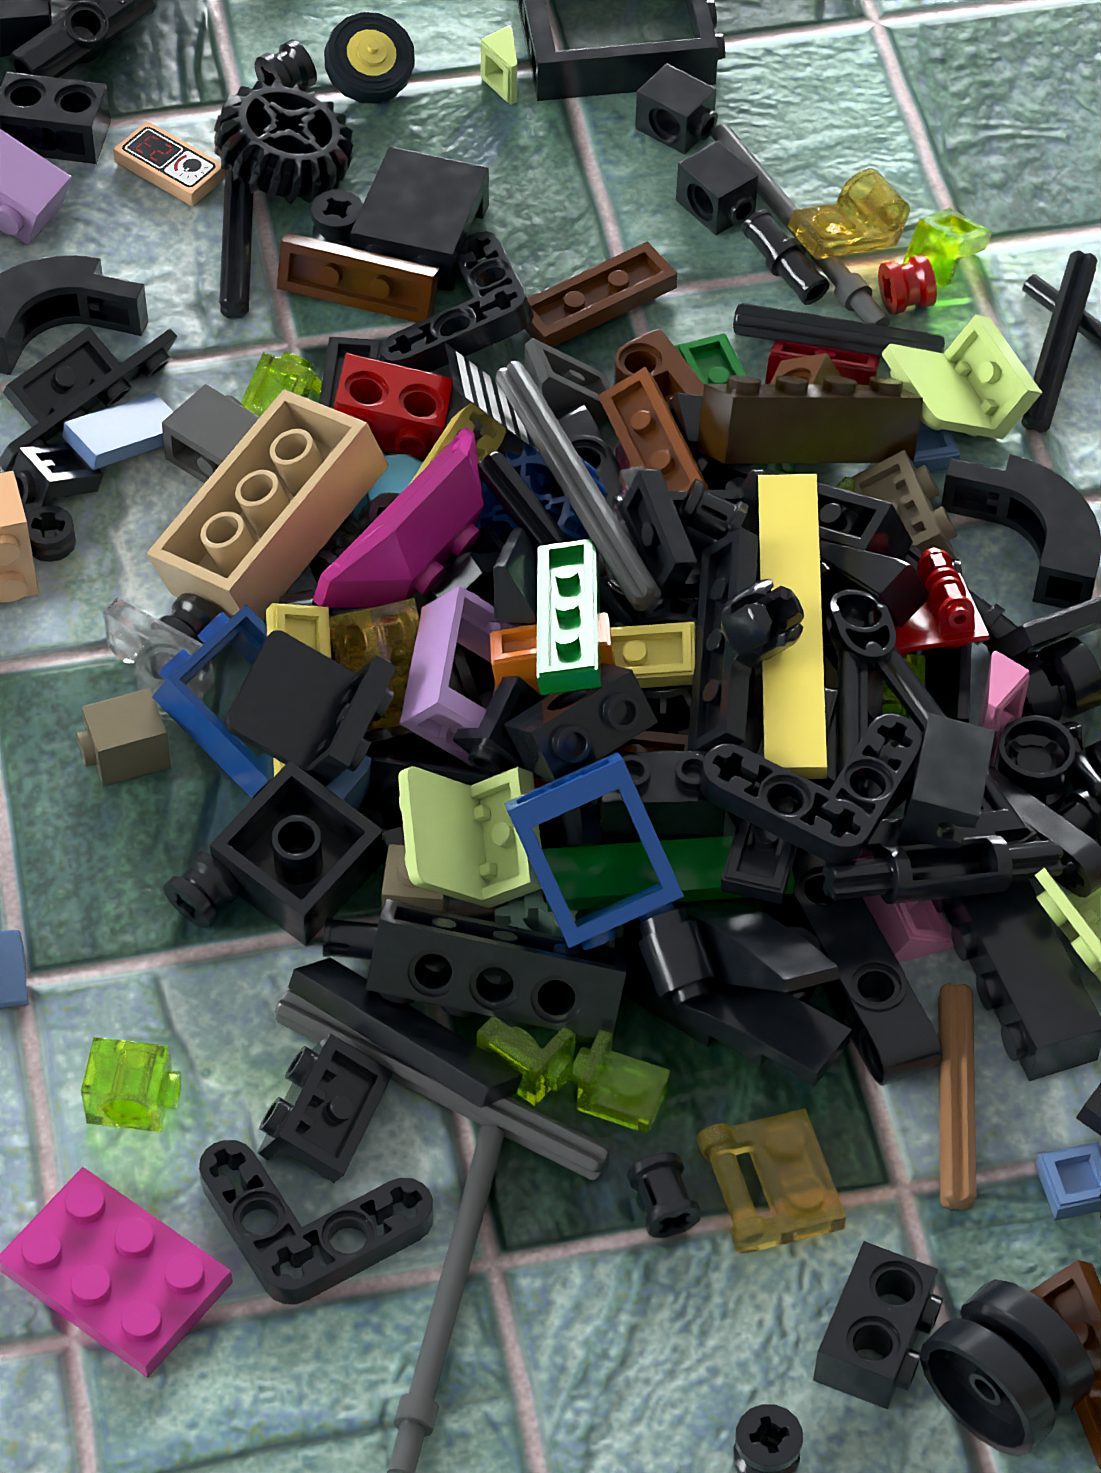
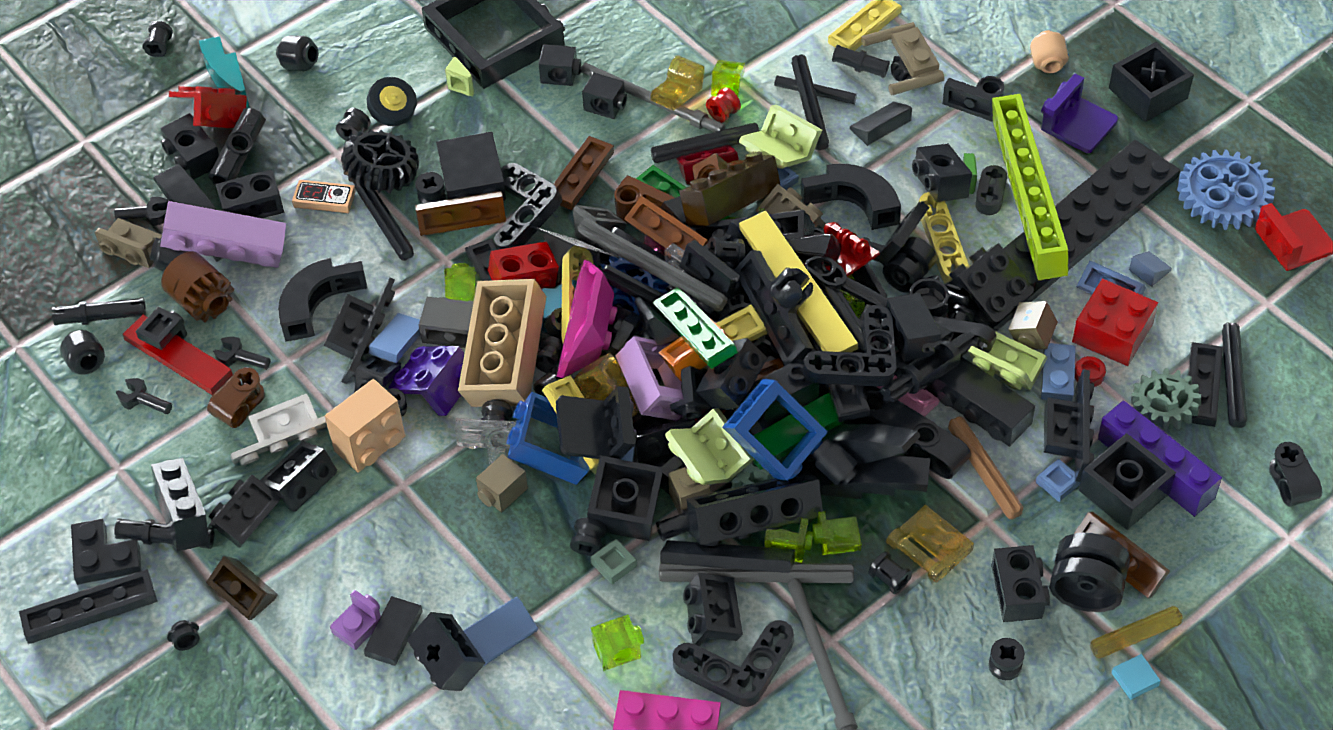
camera: 25 degrees left, 0 degrees up
(130, 517) = (434, 375): none -> dark purple bracket
(218, 950) = (614, 561): none -> sand green plate
(785, 257) = (657, 115): black pin -> none
(1003, 696) = (896, 277): bright pink slope -> none

